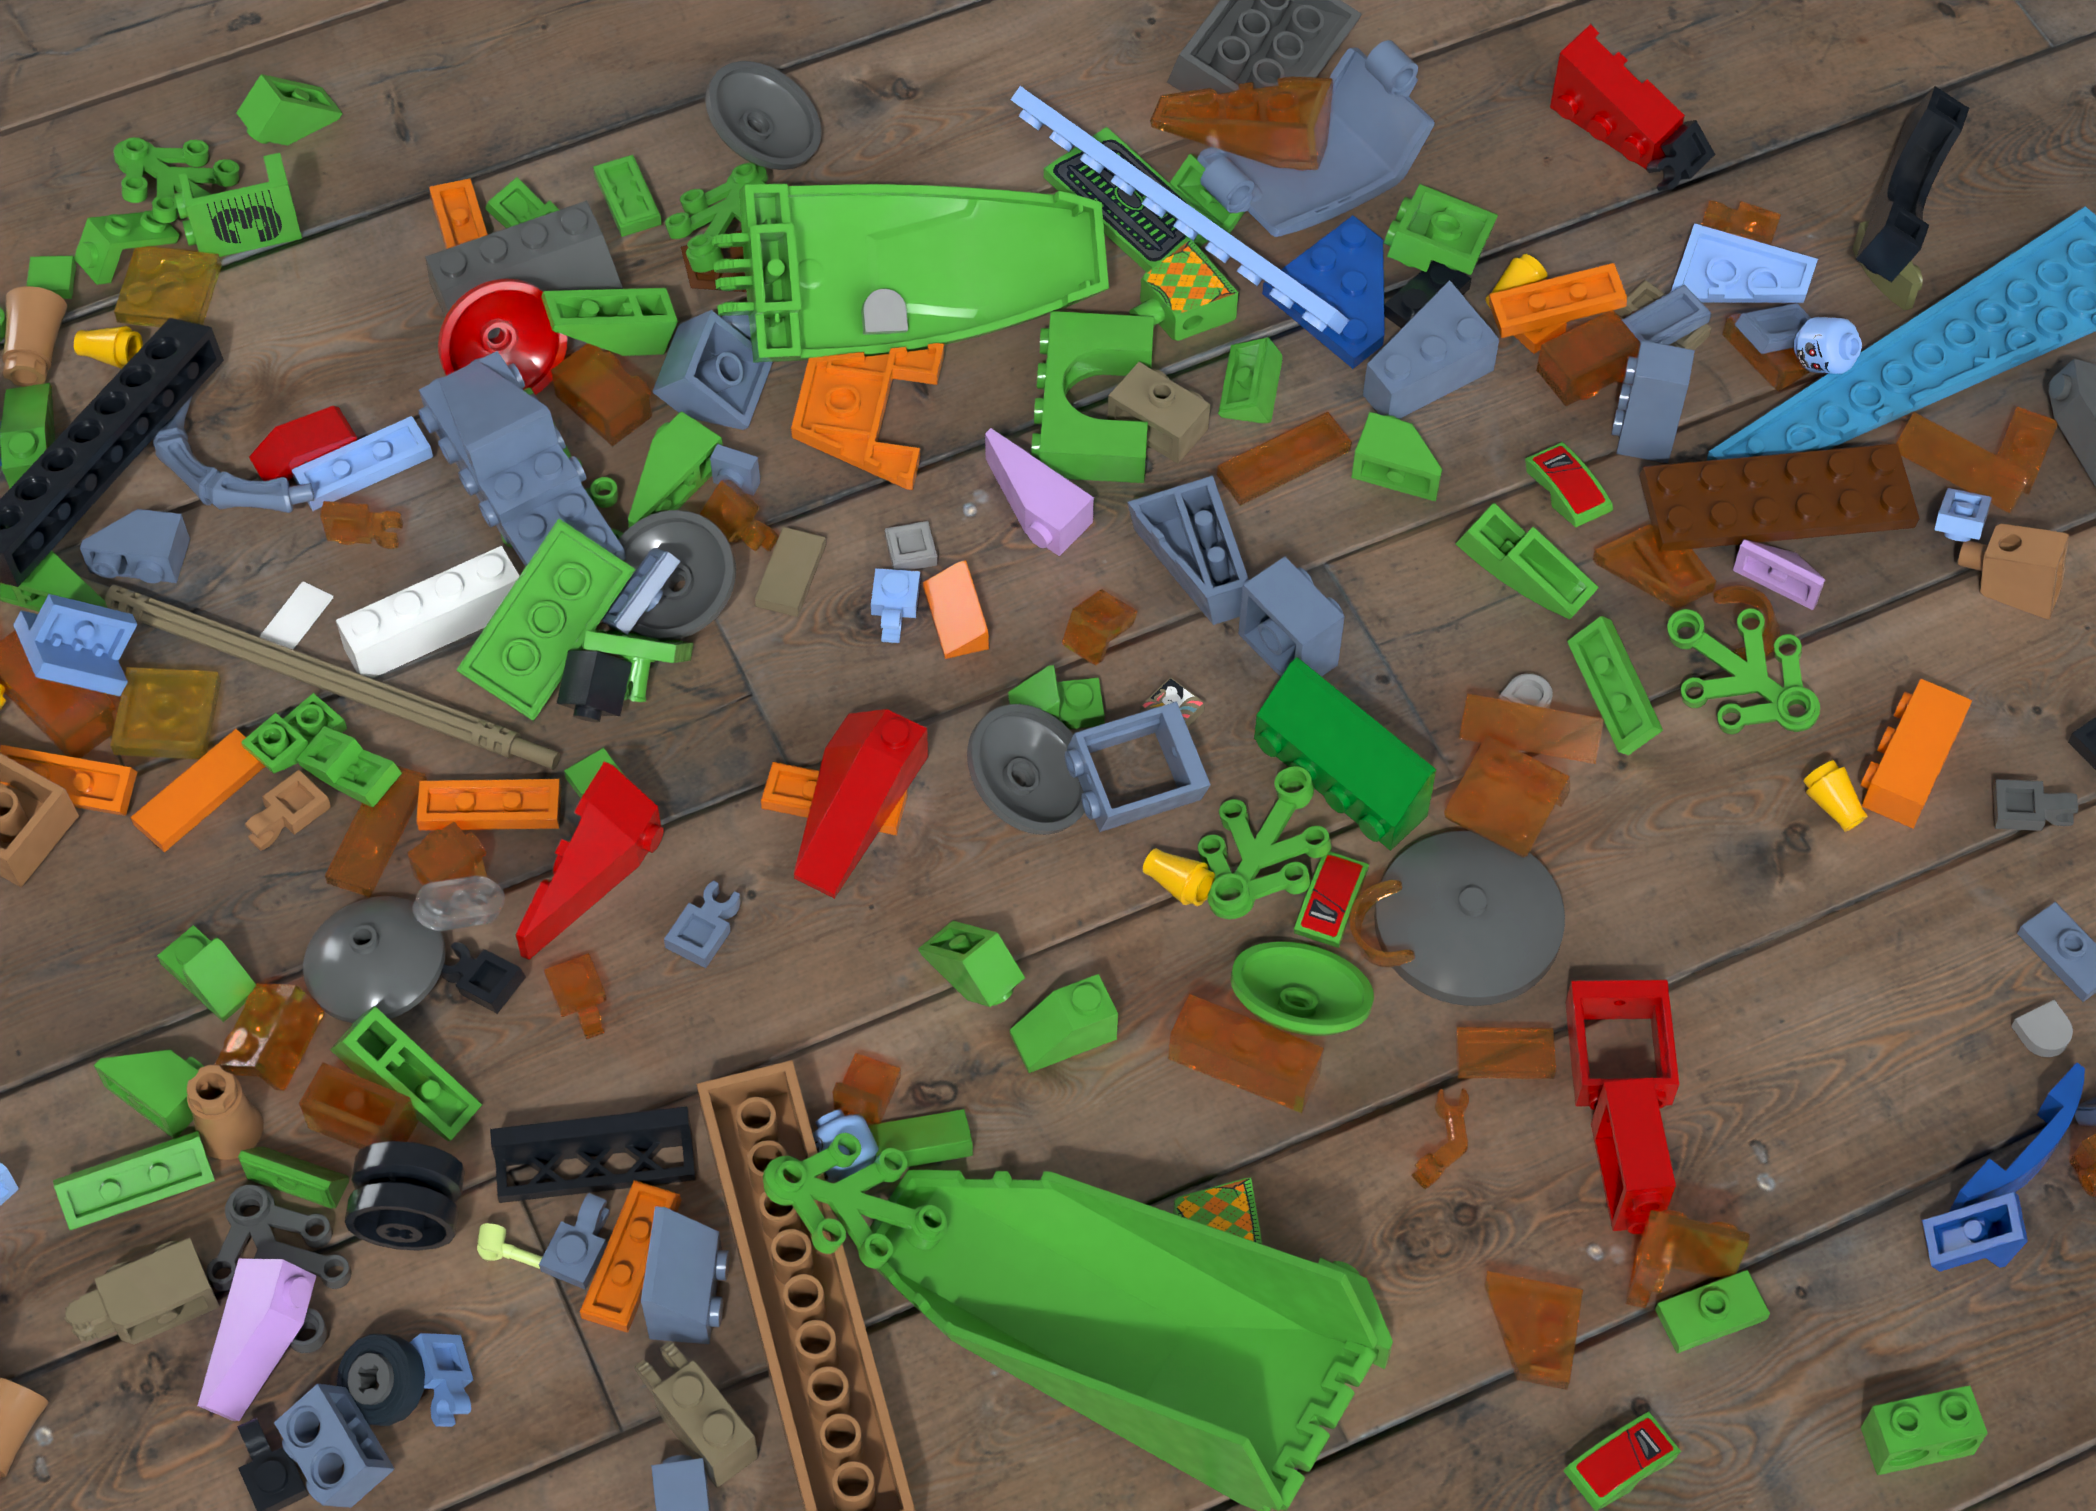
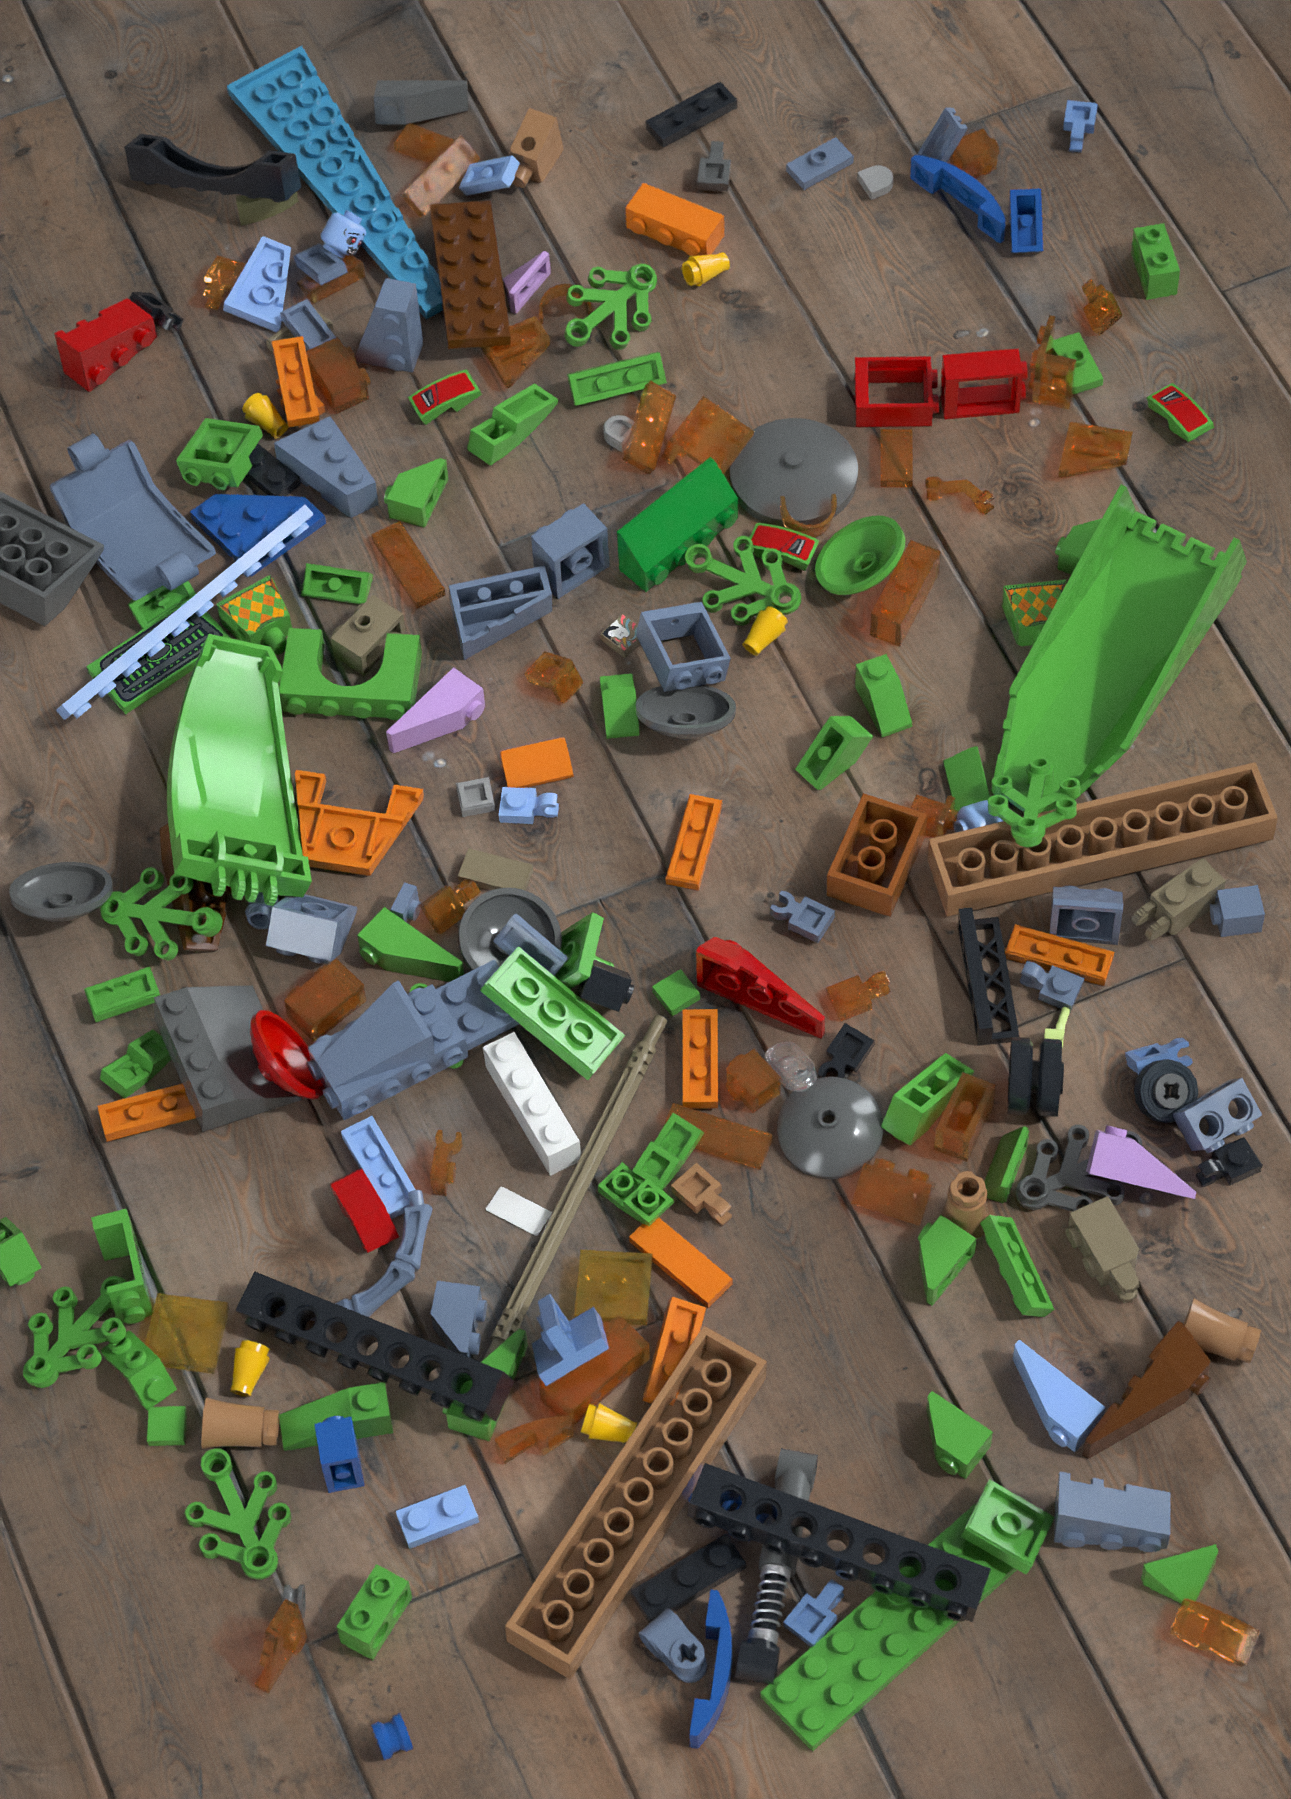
camera: 85 degrees left, 0 degrees up
(208, 972) = (844, 1235): bright green slope -> none
(614, 319) = (268, 974): bright green slope -> none
(786, 1007) = (876, 855): none -> dark orange brick
(855, 792) = (692, 812): red wedge -> none
(884, 313) = (267, 806): light grey tile -> none
(1267, 124) = (109, 551): clear orange wedge -> none
(1818, 1347) = (1102, 307): none -> clear orange plate

